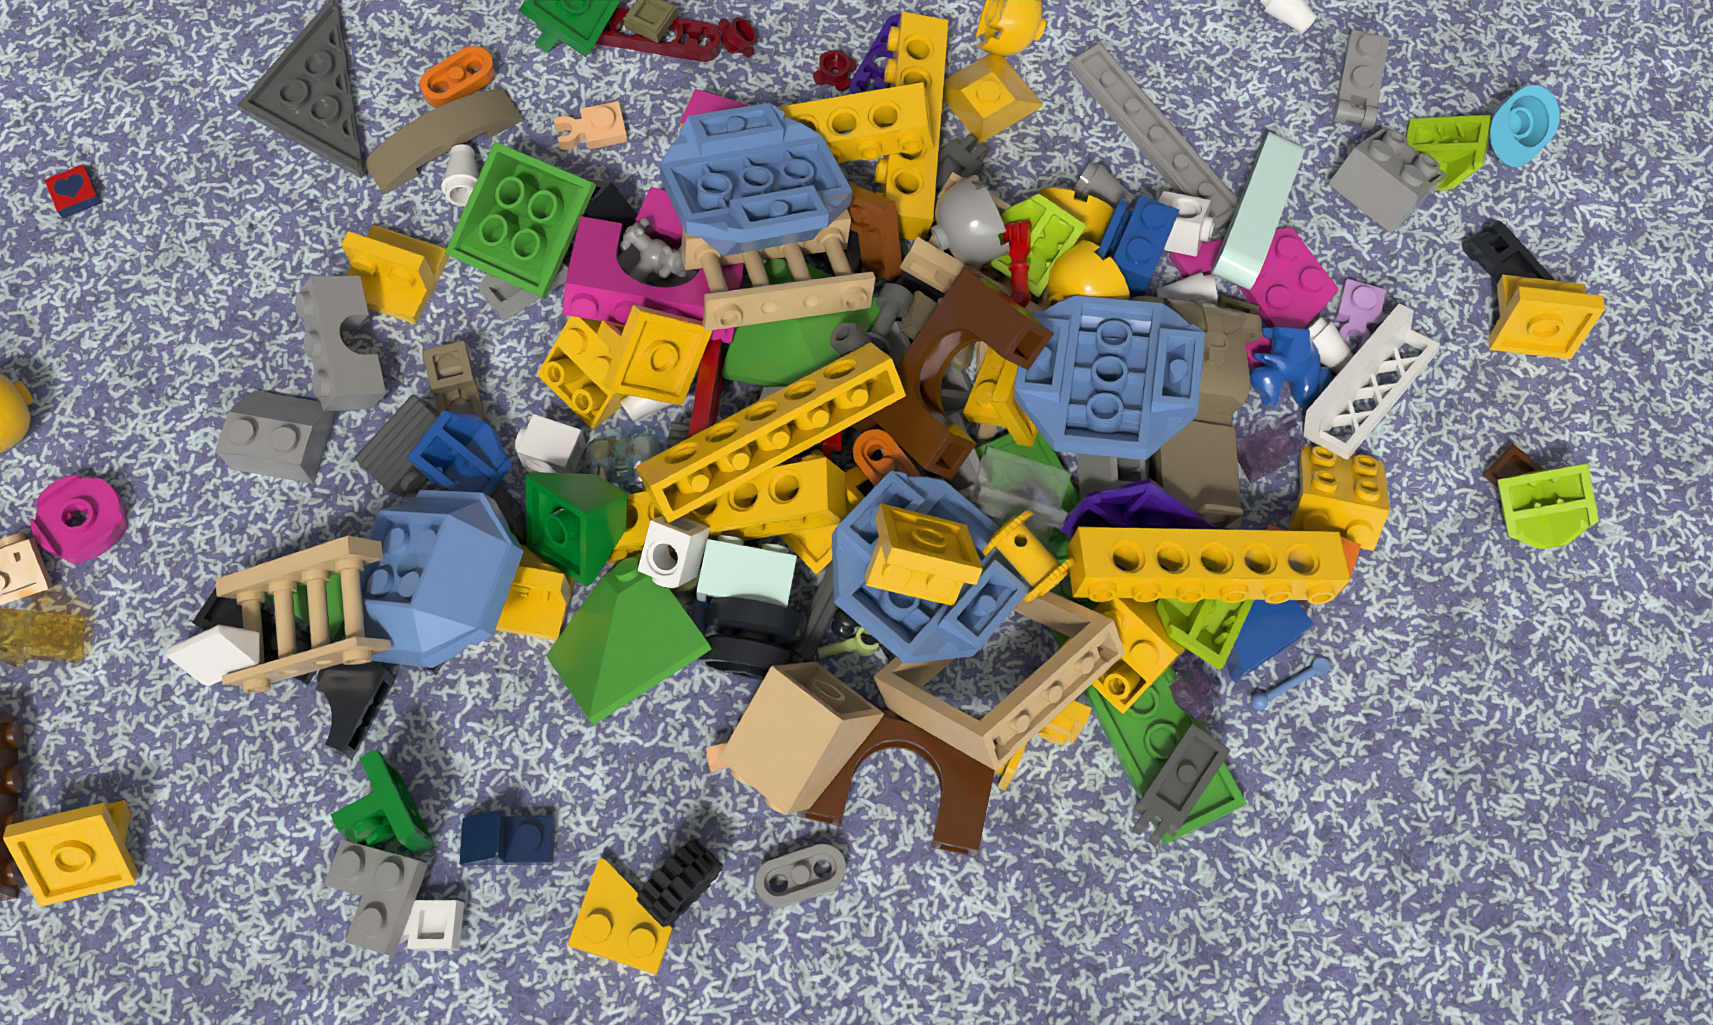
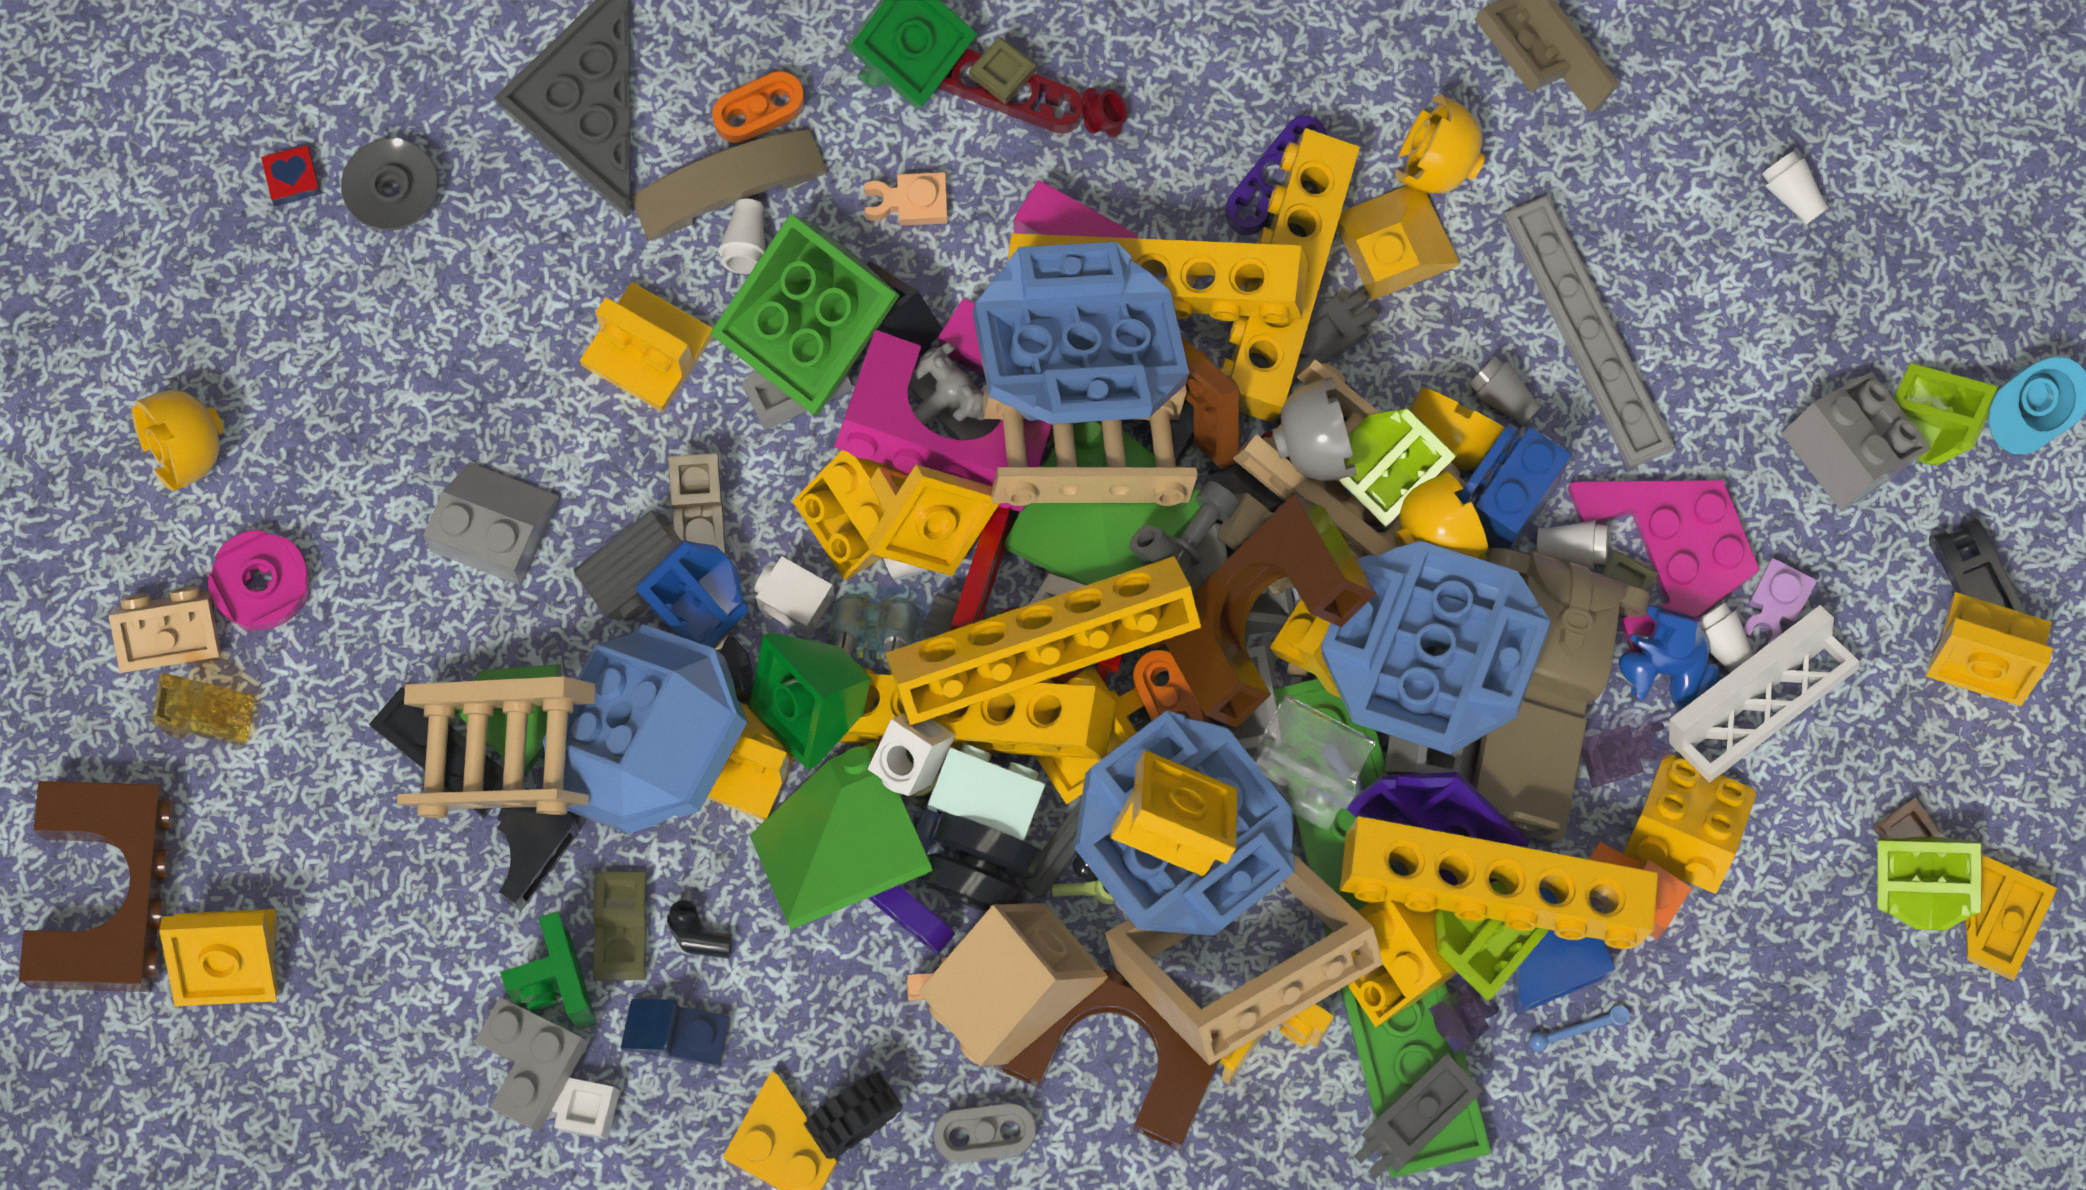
camera: 15 degrees right, 5 degrees up
(145, 172) = (385, 164): none -> dark grey dish
(216, 653) = (396, 769): white slope -> none
(340, 375) = (571, 468): light grey arch -> none
(442, 756) = (620, 926): none -> olive slope
(509, 751) = (693, 935): none -> black arm
(700, 697) = (914, 918): none -> dark purple beam
(834, 60) = (1209, 162): dark red plate -> none
(1019, 239) = (1371, 466): red piece -> none
(1031, 559) = (1301, 842): yellow hose -> none
(1191, 224) = (1594, 455): white brick -> none
(1258, 211) = (1682, 456): light aqua beam -> none
(1361, 79) = (1863, 299): light grey plate -> none
(1619, 534) = (2008, 920): none -> yellow wing

